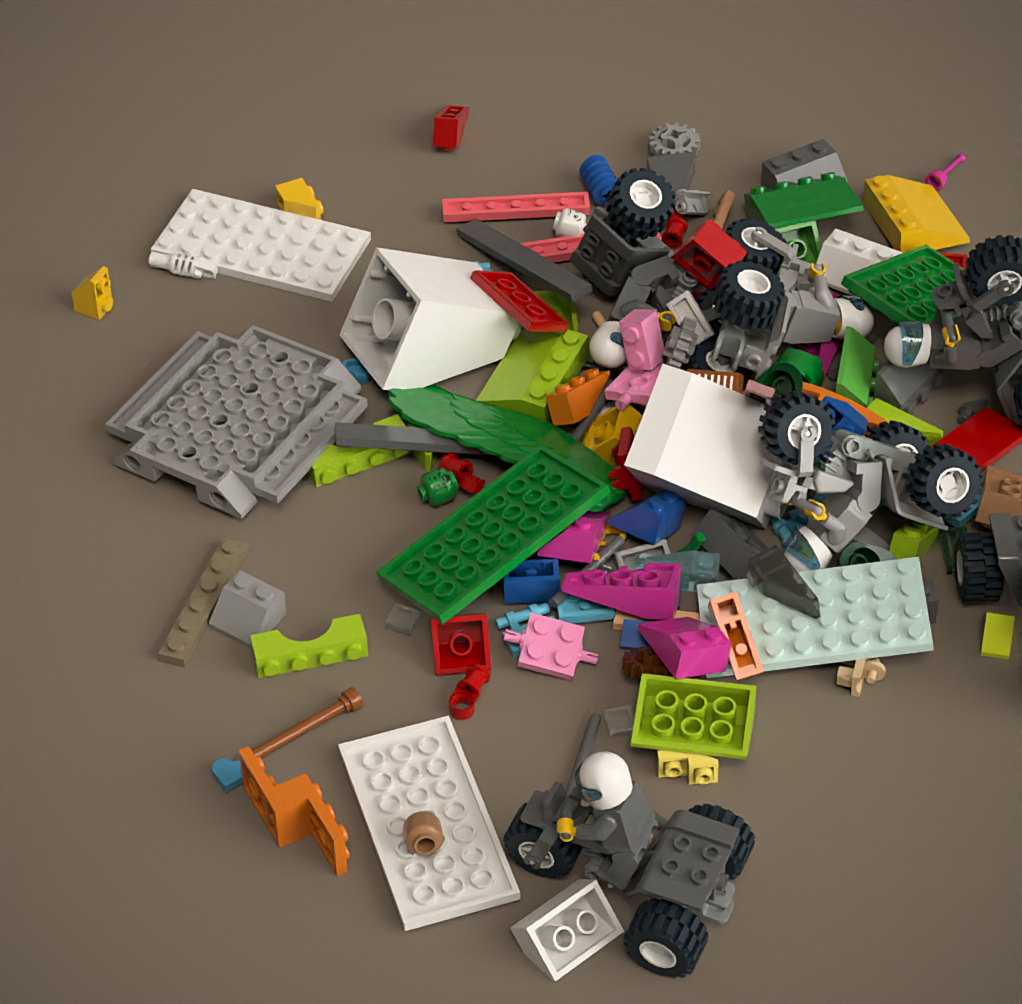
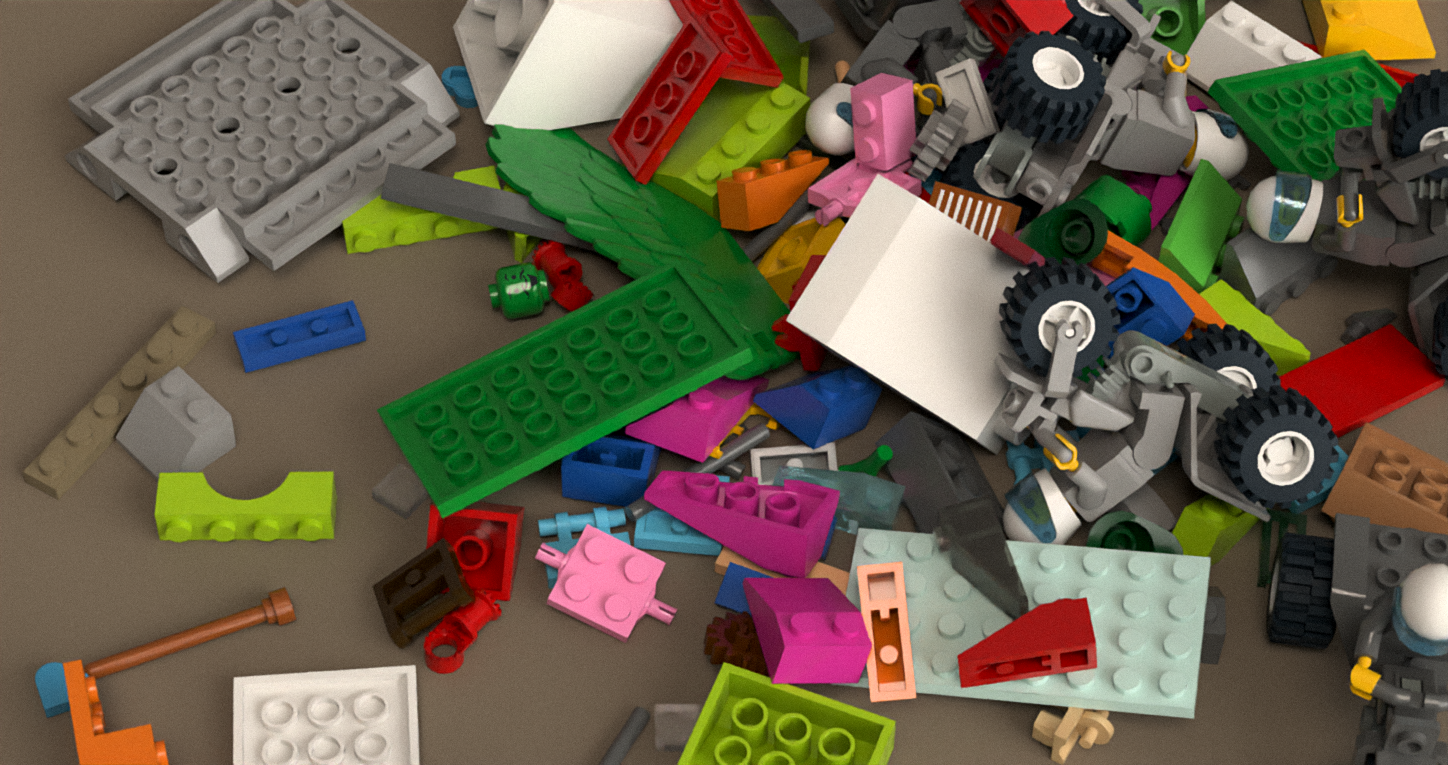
camera: 10 degrees right, 5 degrees up
(305, 540) = (299, 336): none -> blue plate
(435, 668) = (416, 584): none -> dark brown plate
(501, 350) = (669, 98): none -> red tile
(830, 624) = (1039, 643): none -> red slope
(997, 635) = (1309, 705): neon yellow slope -> none

